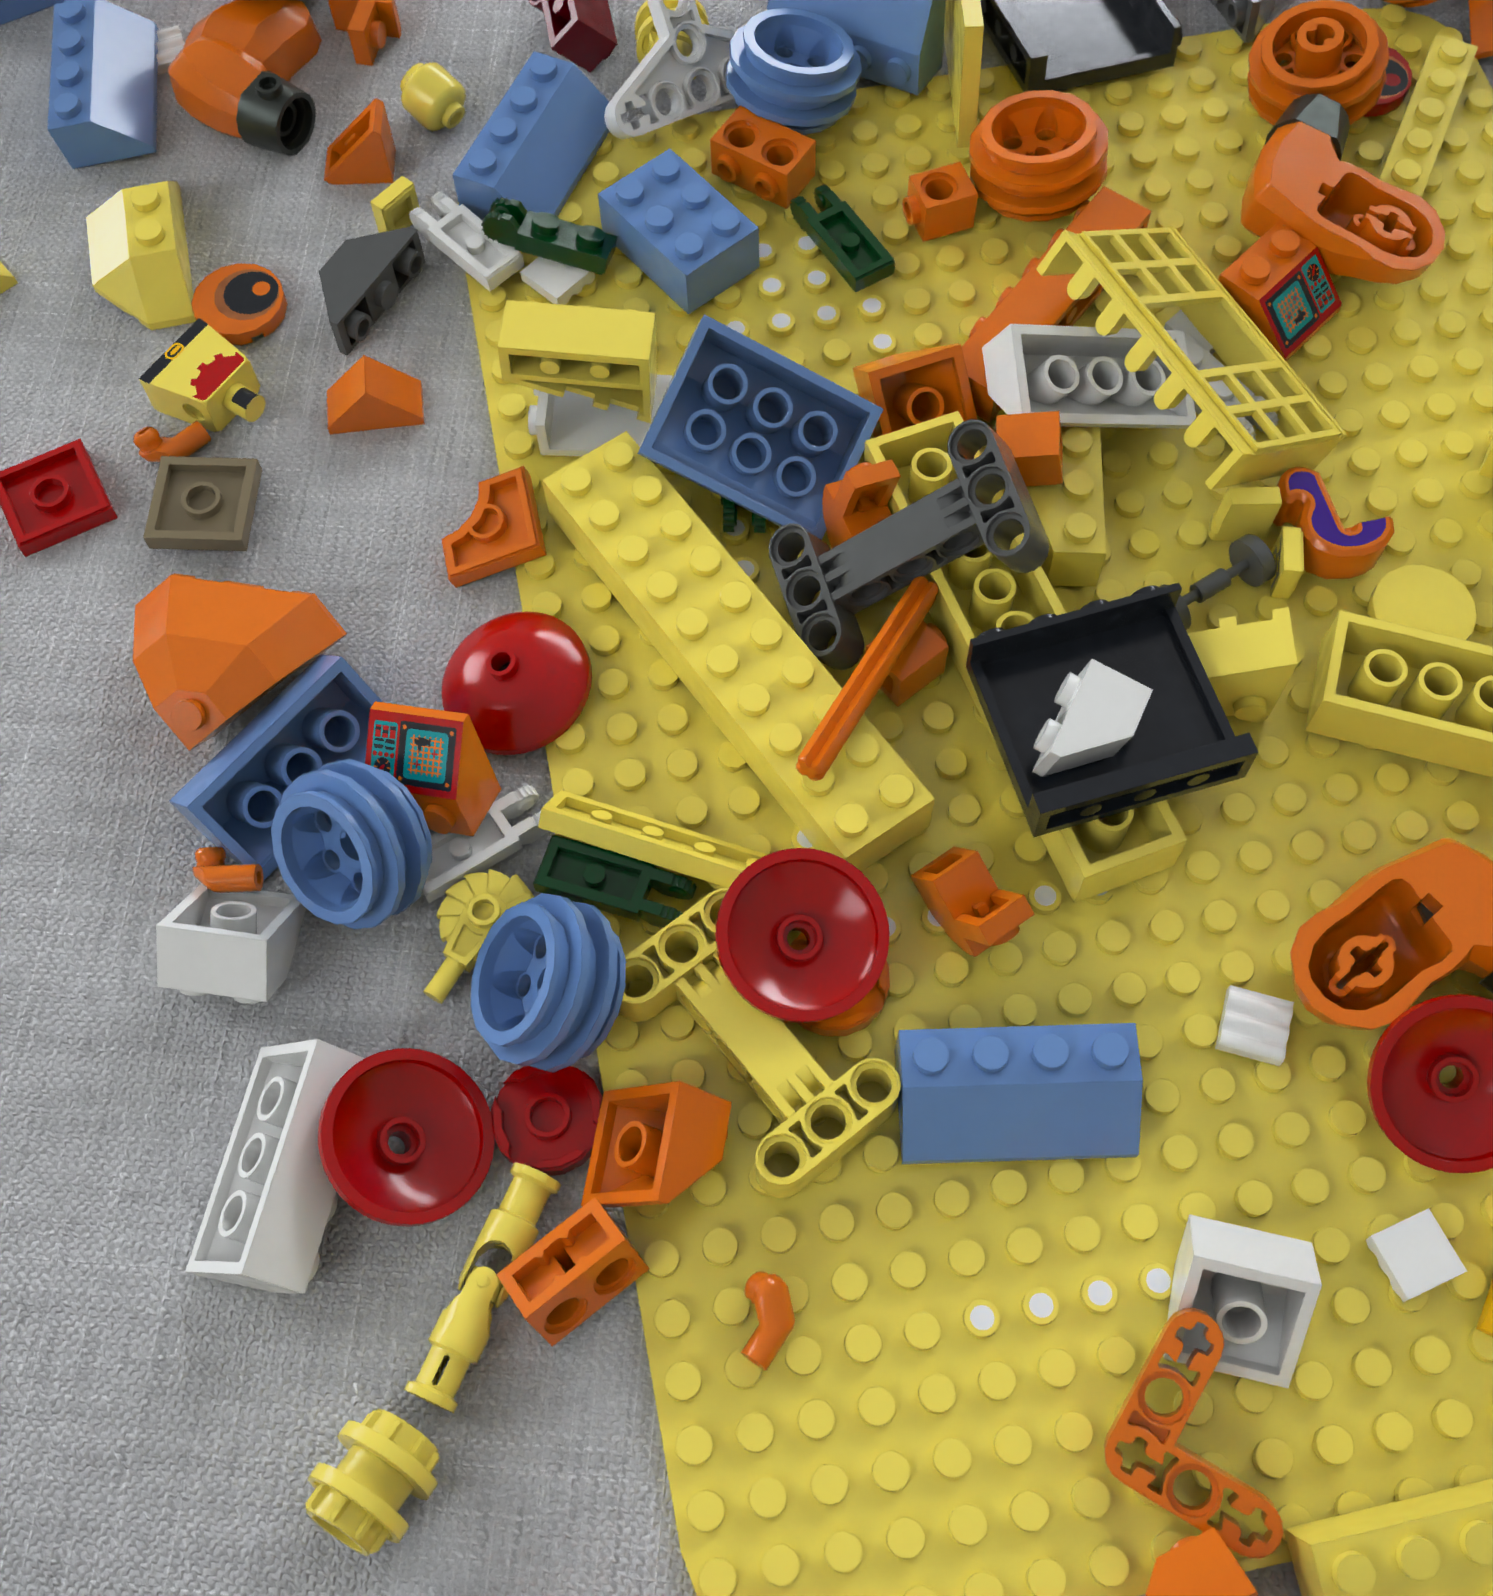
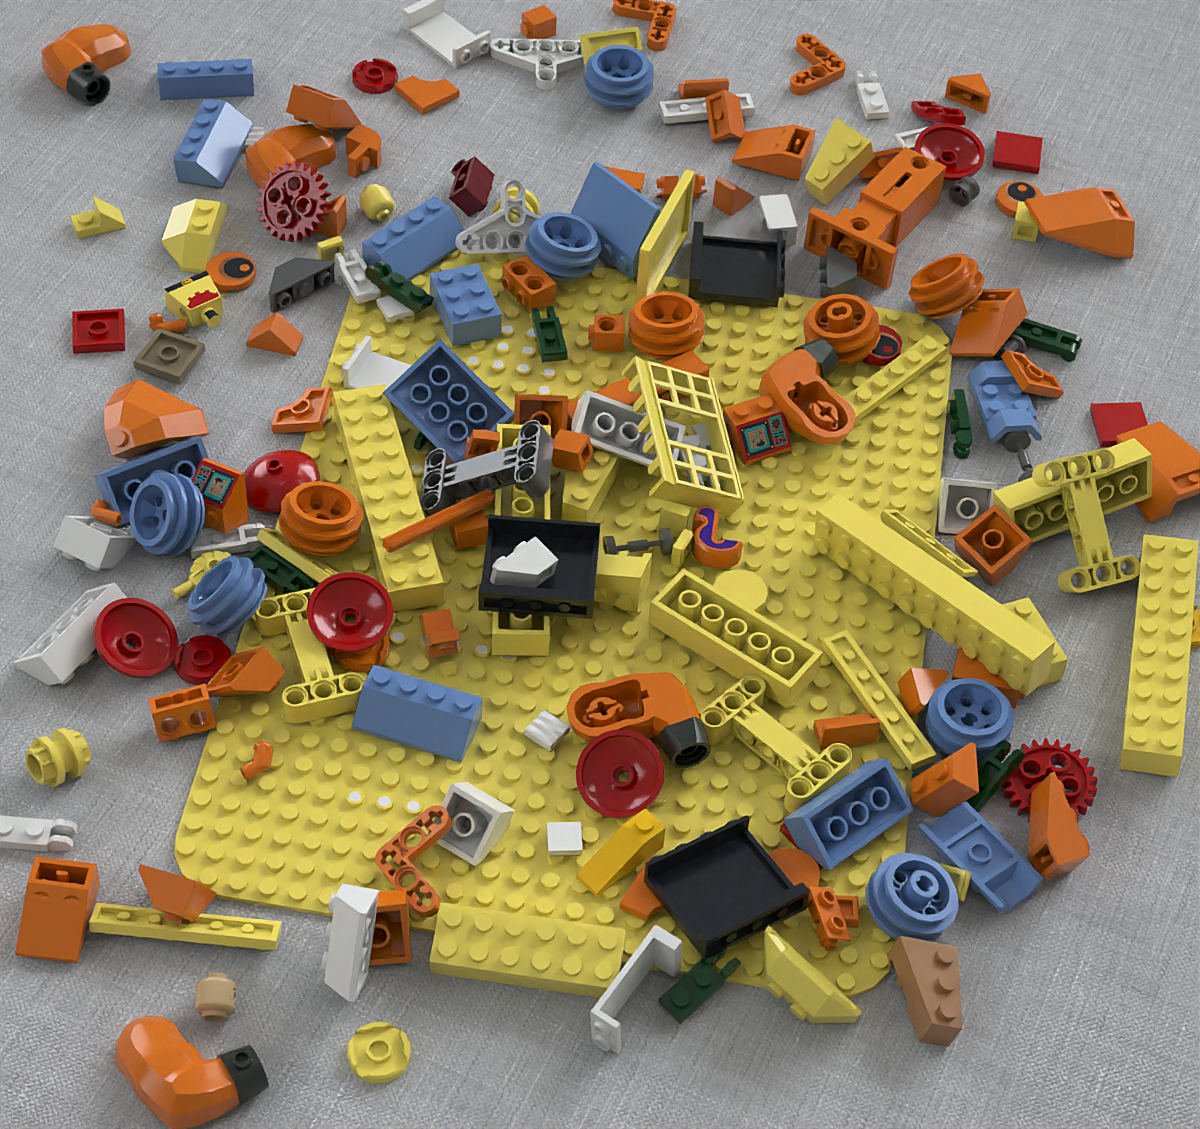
camera: 15 degrees right, 15 degrees down
(318, 110) = (293, 202): none -> red gear
(466, 1321) = (138, 710): light yellow piece -> none
(581, 351) = (379, 340): light yellow wedge -> none
(641, 723) = (320, 518): none -> orange wheel

